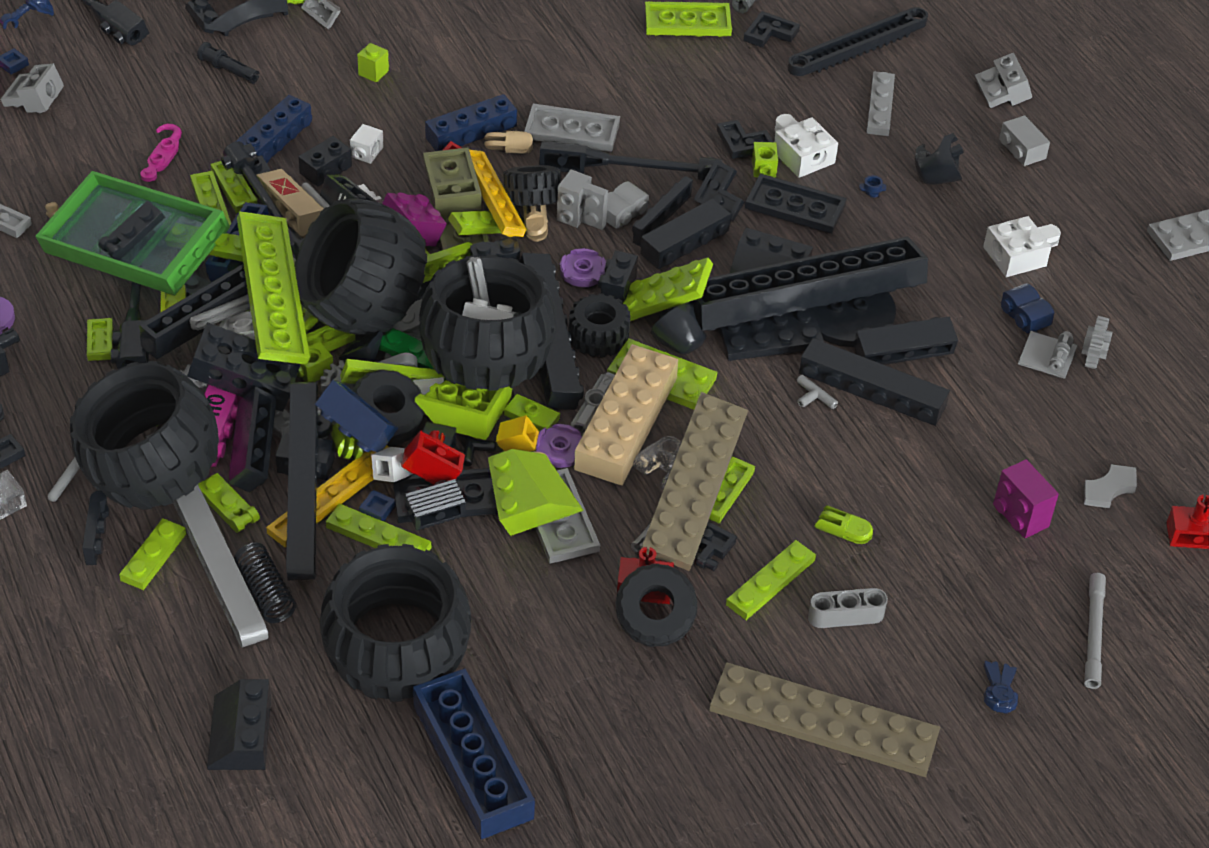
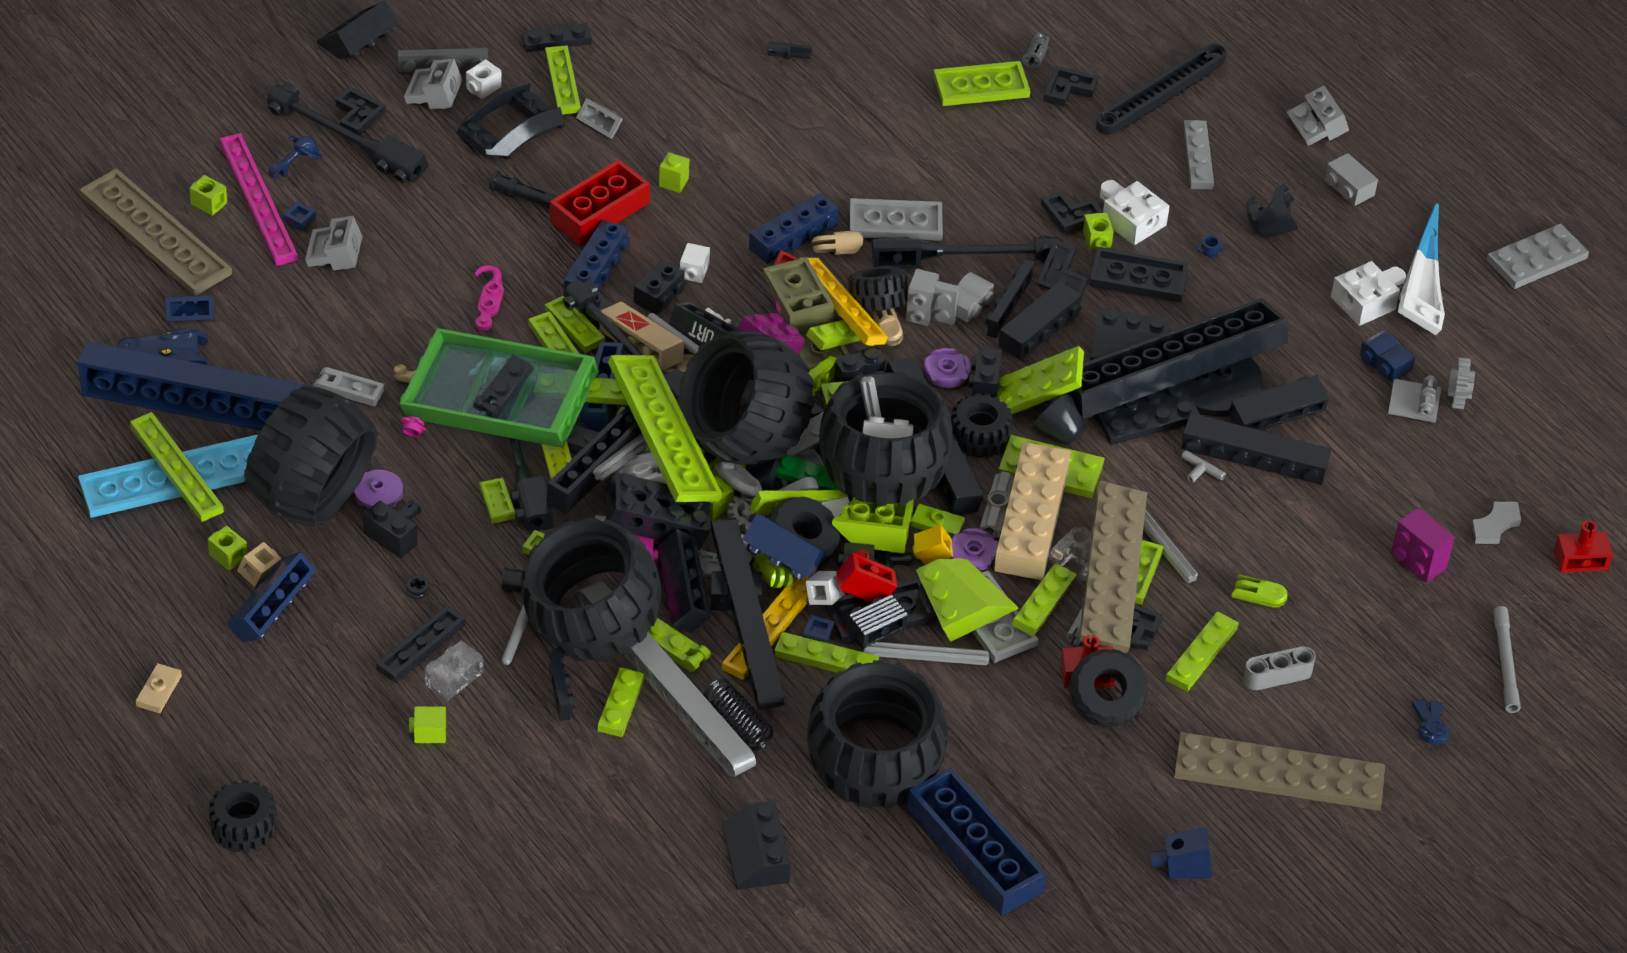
camera: 10 degrees left, 0 degrees up
(43, 260) = (412, 426): none -> dark pink plate
(300, 74) = (606, 195): none -> red brick
(339, 345) = (738, 478): none -> light grey piece
(483, 544) = (928, 653): none -> light grey axle
(617, 505) = (1044, 599): none -> lime plate
(697, 799) = (1185, 855): none -> dark blue torso
(762, 471) = (1170, 551): none -> light grey axle
(1075, 251) = (1421, 291): none -> white plate

